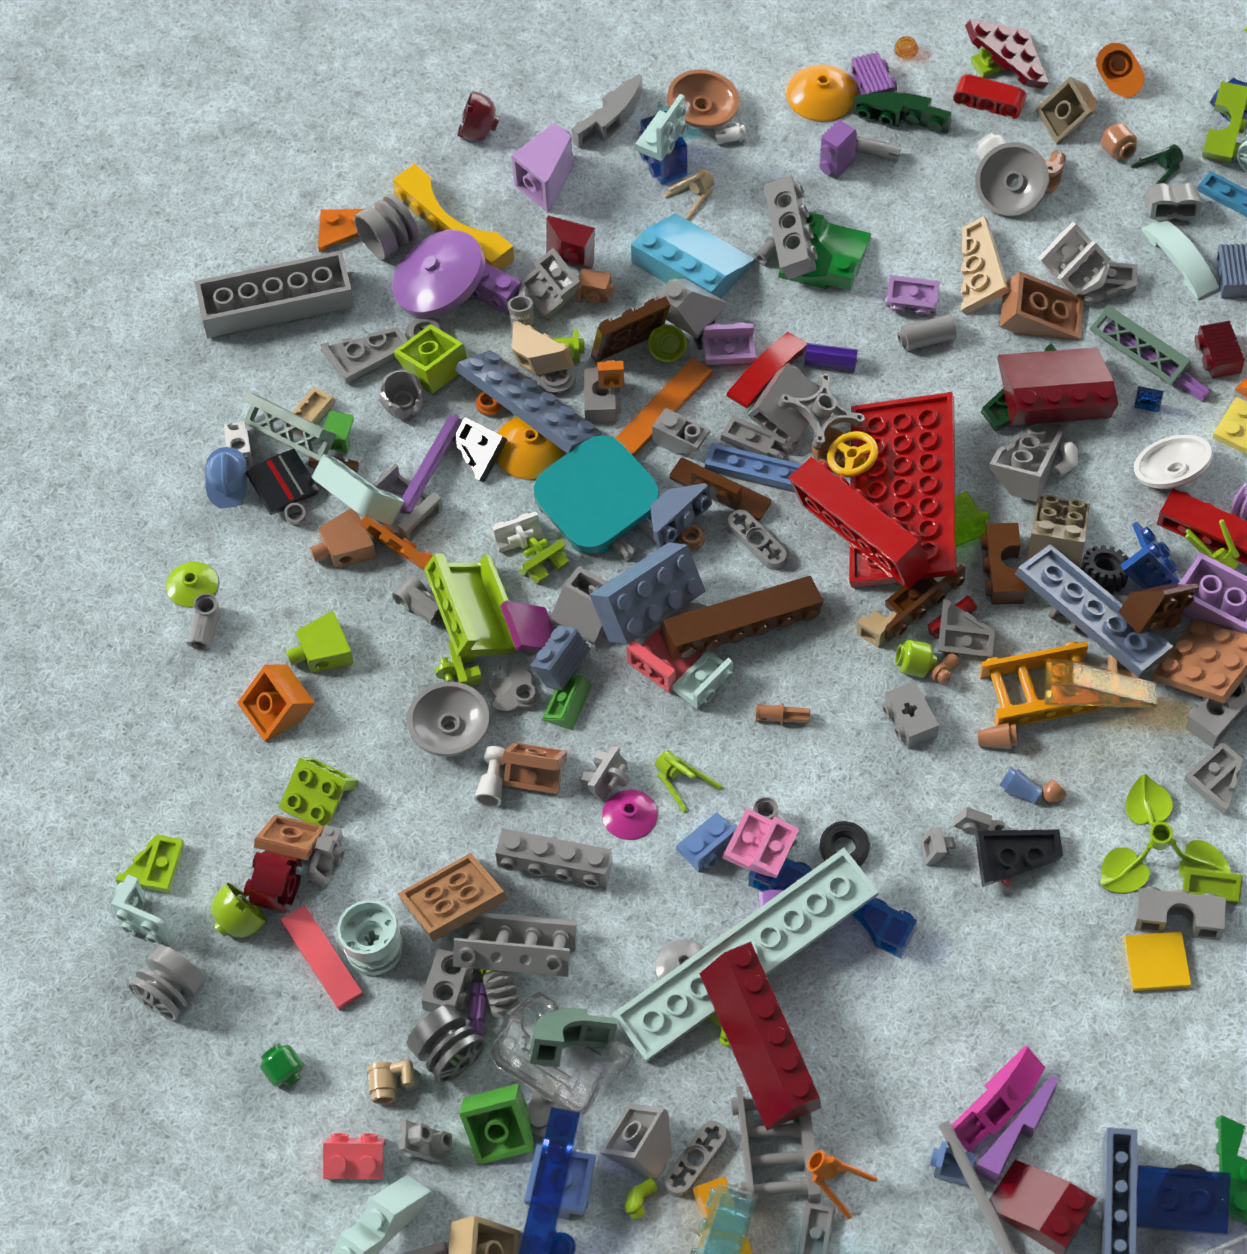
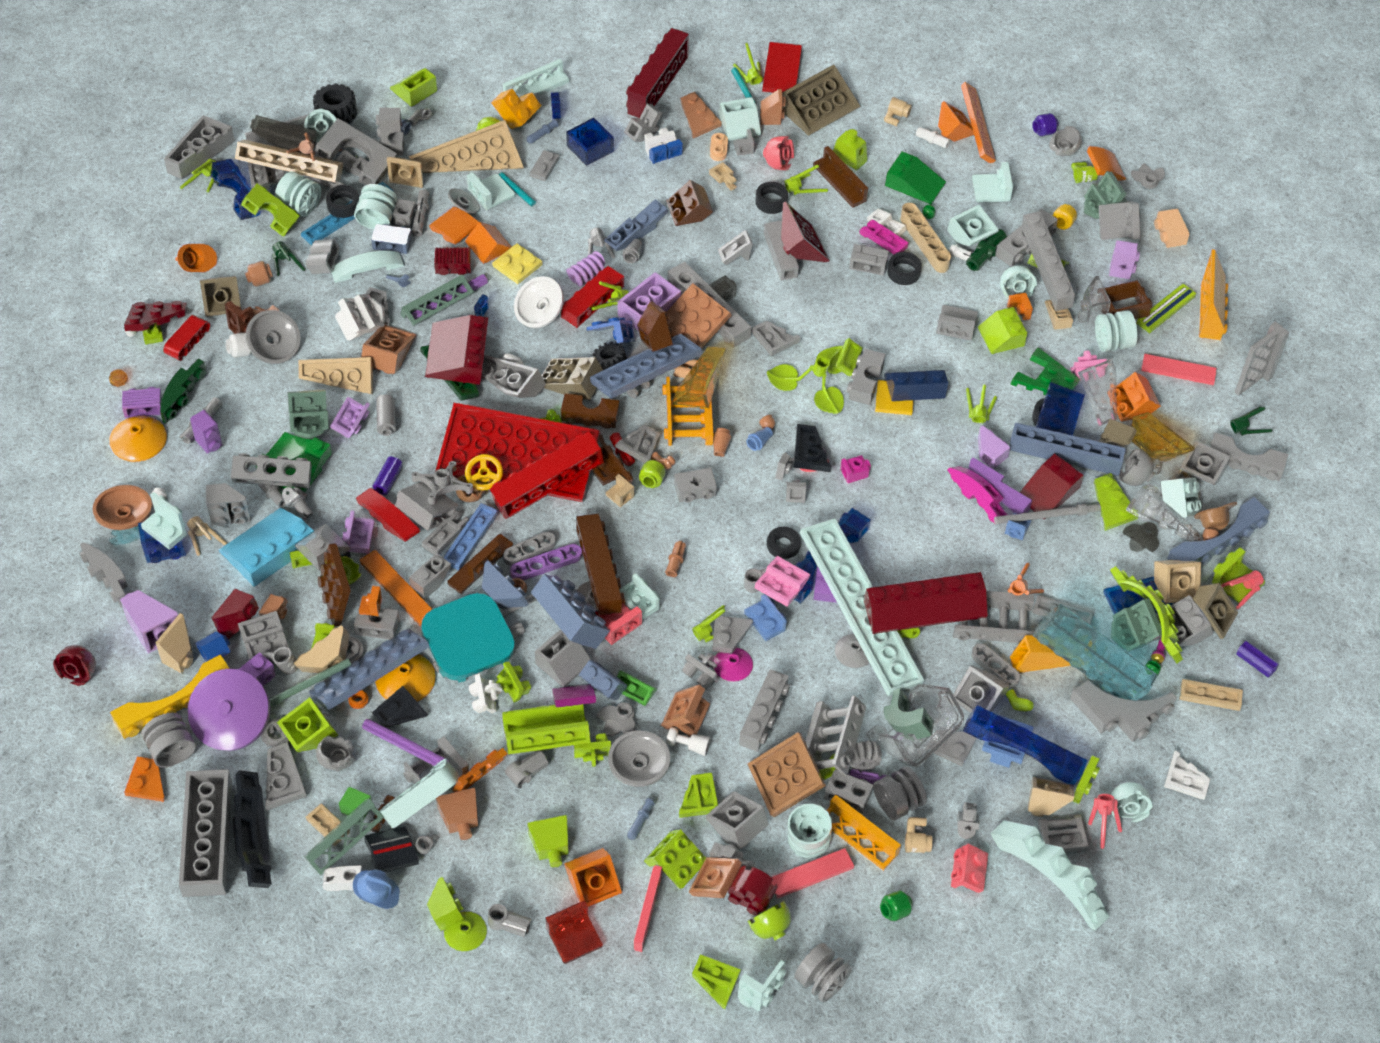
camera: 85 degrees left, 5 degrees down
(196, 695) = (573, 932): none -> clear red bracket
(215, 549) = (443, 906): none -> lime slope
(238, 770) = (647, 909): none -> coral tile
(281, 339) = (251, 831): none -> black piece
(376, 744) = (643, 814): none -> sand blue piece
(378, 851) = (738, 819): none -> light grey slope
(392, 1012) = (868, 831): none -> light orange fence
(412, 804) = (699, 797): none -> lime wing
(493, 342) = (309, 682): none -> sand green bar
(497, 1124) = (959, 772): bright green slope -> none
(519, 201) = (175, 645): none -> tan slope
(526, 238) = (213, 646): none -> blue brick
(672, 797) = (729, 632): none -> light grey wing
(729, 195) = (226, 505): none -> light grey slope
(735, 565) = (547, 565): none -> medium lavender beam
(760, 271) = (296, 499): none -> light grey piece
(896, 244) = (308, 413): none -> sand green piece
(998, 930) = (855, 468): none -> dark pink brick
(1027, 129) = (237, 318): none -> copper bracket
(1091, 1108) = (991, 448): none -> lavender slope
(1160, 1086) = (979, 413): none -> lime plant
(1169, 303) = (402, 281): none -> sand blue hand
(1186, 984) = (917, 385): none -> dark blue slope

